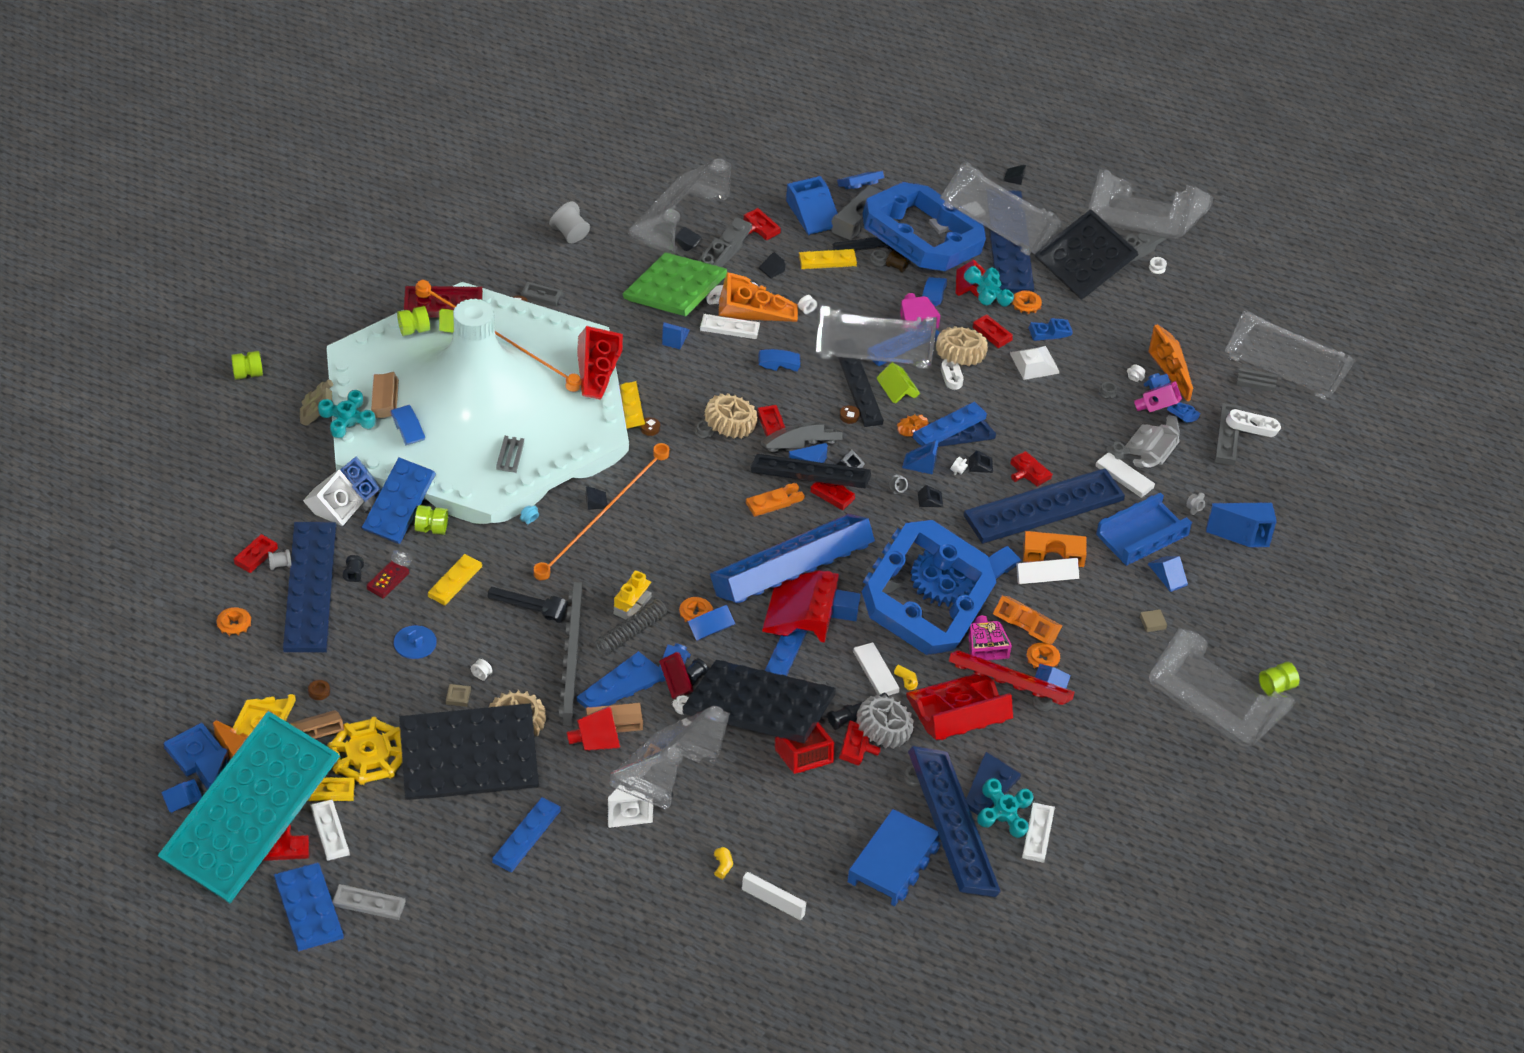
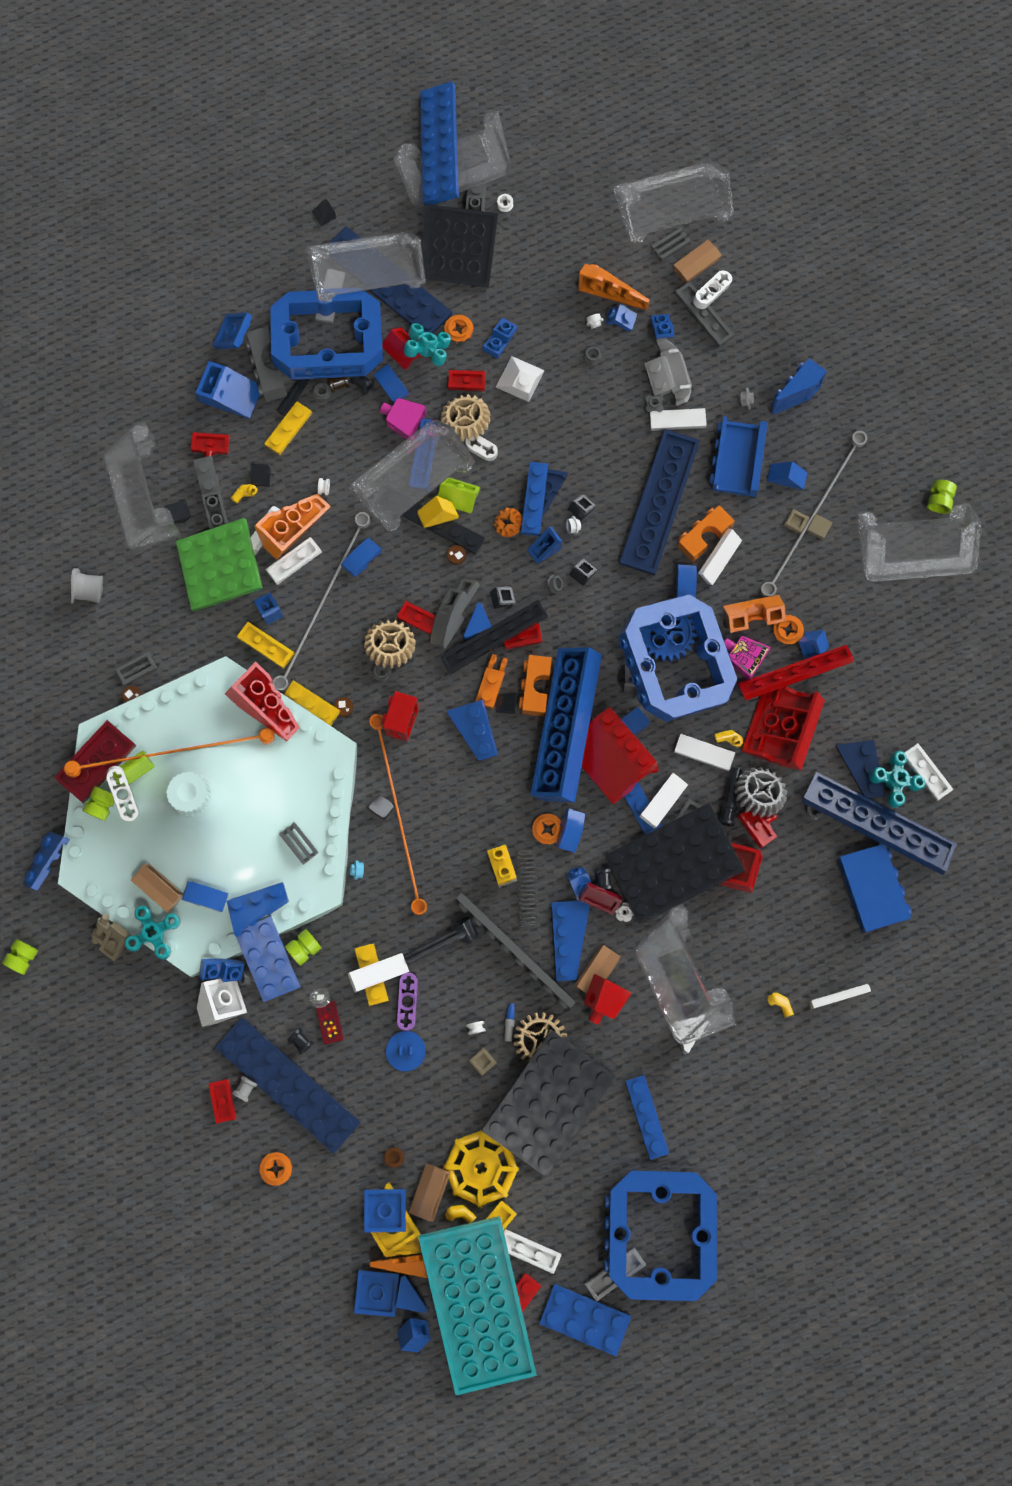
camera: 40 degrees left, 30 degrees up
(270, 697) = (385, 1210): none -> blue plate
(335, 331) = (47, 853): none -> blue wing
(426, 454) = (251, 907): none -> blue wing
(433, 337) = (121, 808): none -> white beam
(460, 575) = (378, 972): none -> white tile
(460, 607) = (401, 1016): none -> medium lavender beam
(476, 878) = (672, 1288): none -> blue panel
(519, 686) = (509, 1023): none -> light grey piece
(625, 376) = (280, 682): none -> light grey piece
(645, 350) = (265, 645): none -> yellow plate
(681, 455) = (400, 716): none -> red piece
(724, 512) = (475, 728): none -> blue wing
(749, 265) = (244, 491): none -> yellow arm
(769, 520) = (507, 703): none -> black slope
(804, 665) = (663, 800): none -> white tile
(809, 517) = (537, 669): none -> orange arch
(868, 374) = (437, 512): none -> yellow slope
(914, 275) = (363, 383): none -> black bush
(1029, 469) = (617, 479): red plate -> none
(1138, 603) = (796, 521): none -> dark tan tile
(1148, 193) = (439, 144): none -> blue plate
(1166, 394) = (638, 330): dark pink torso -> none
(1256, 597) = (858, 440): none -> light grey piece
(1264, 402) = (696, 261): none -> medium nougat piece

